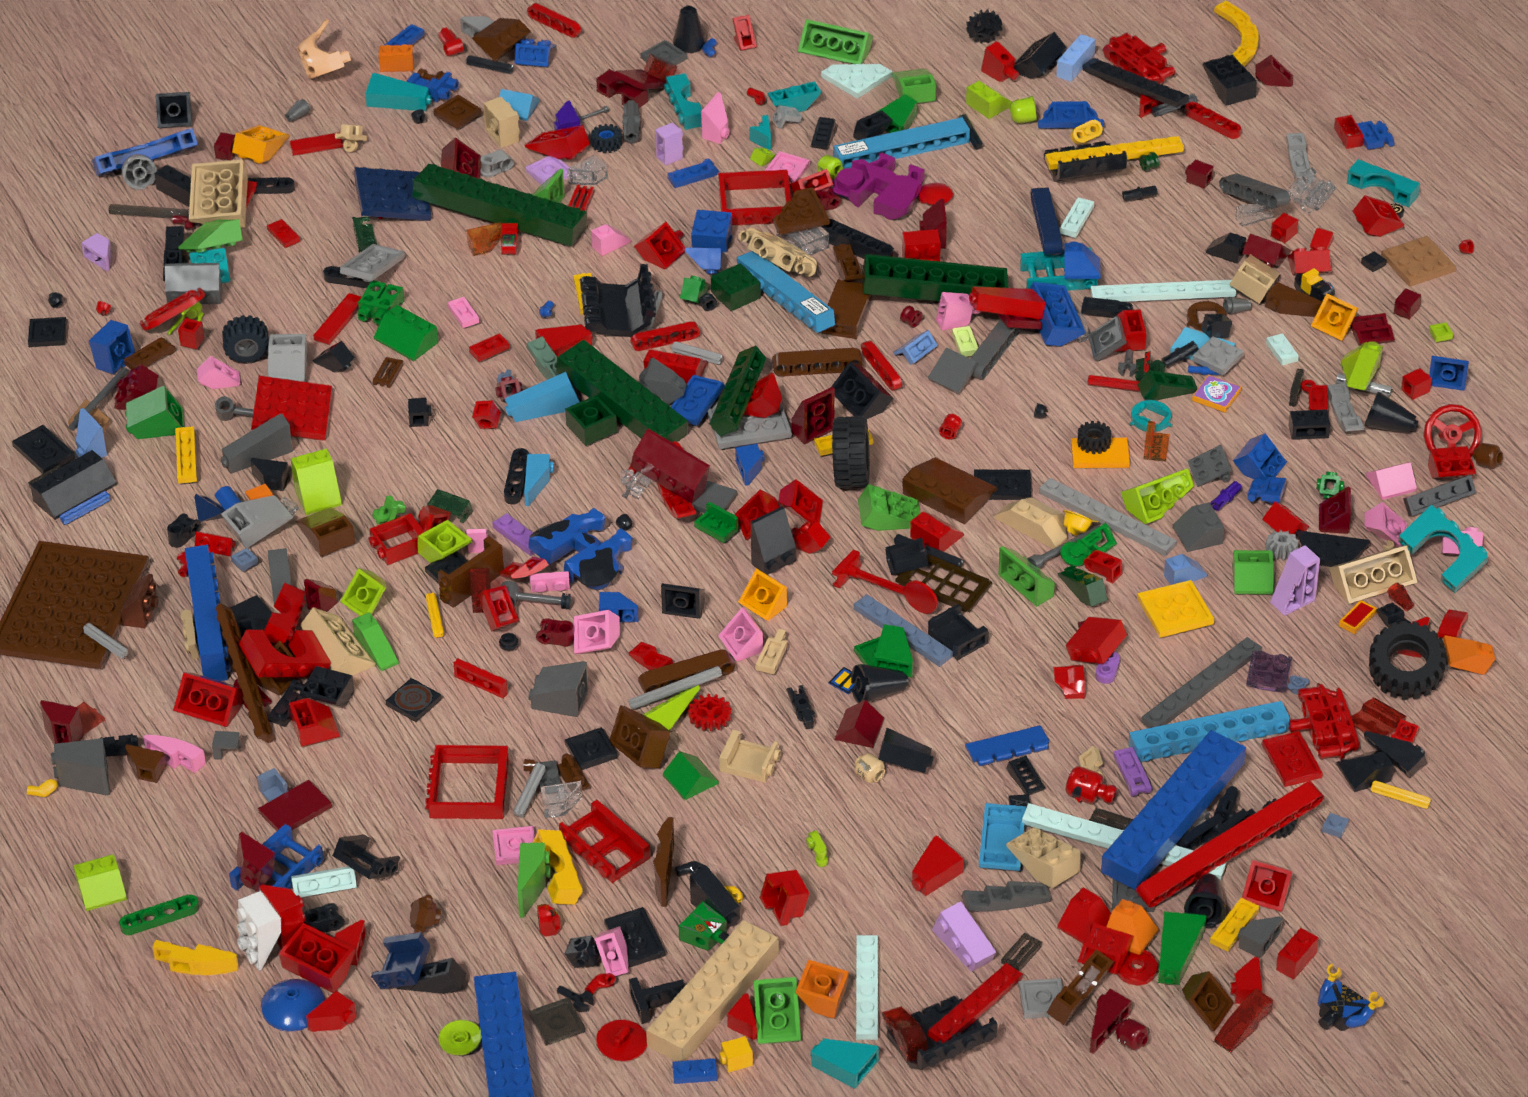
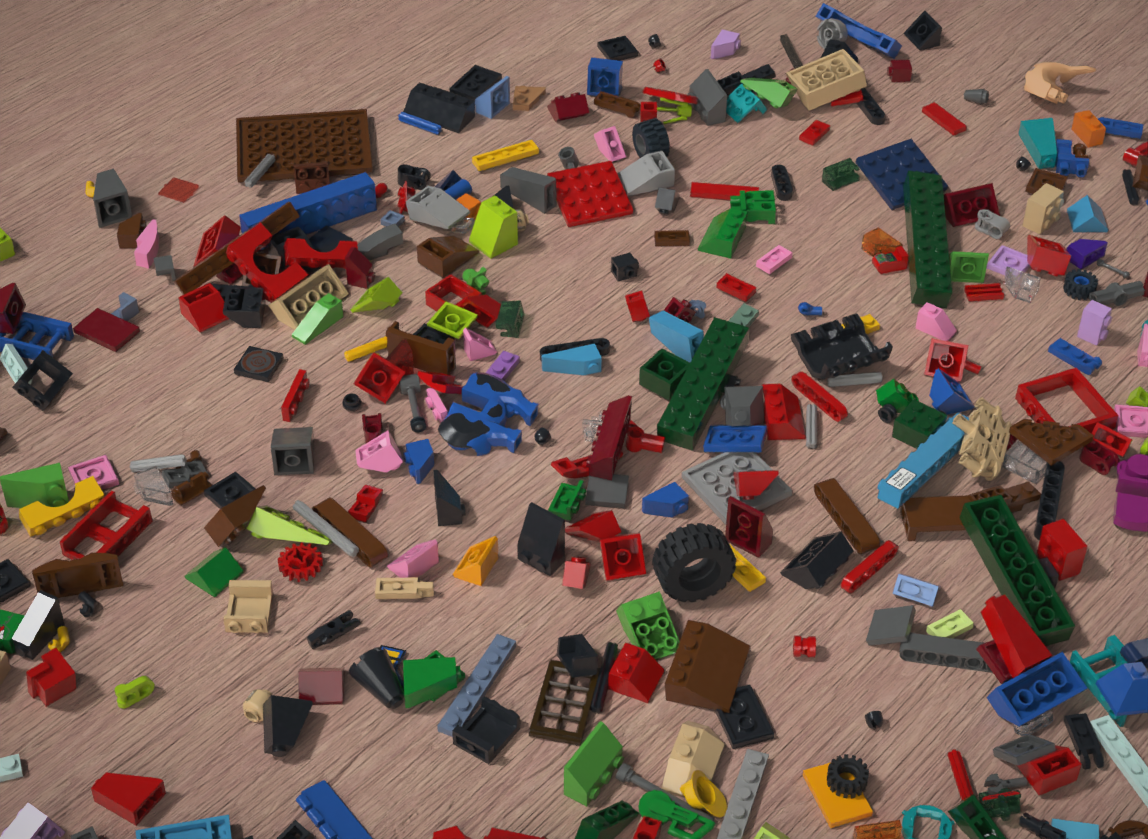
camera: 70 degrees right, 0 degrees up
(61, 722) = (153, 174): dark red slope -> none
(103, 393) = (514, 87): dark grey bar -> none
(117, 747) = (149, 212): black hinge -> none
(154, 415) = (541, 125): green slope -> none
(258, 143) = (918, 86): light orange slope -> none
(351, 134) = (956, 125): tan hips -> none
(372, 262) = (798, 185): light grey plate -> none
(467, 754) = (165, 442): red window -> none
(564, 337) = (770, 331): red slope -> none
(712, 230) = (992, 384): blue brick -> none
(737, 391) = (752, 459): dark green brick -> none
(911, 316) = (960, 571): dark red wheel -> none
(916, 592) = (542, 616): red piece -> none
(936, 219) = (1113, 555): dark red slope -> none
(954, 310) = (979, 595): bright pink torso -> none

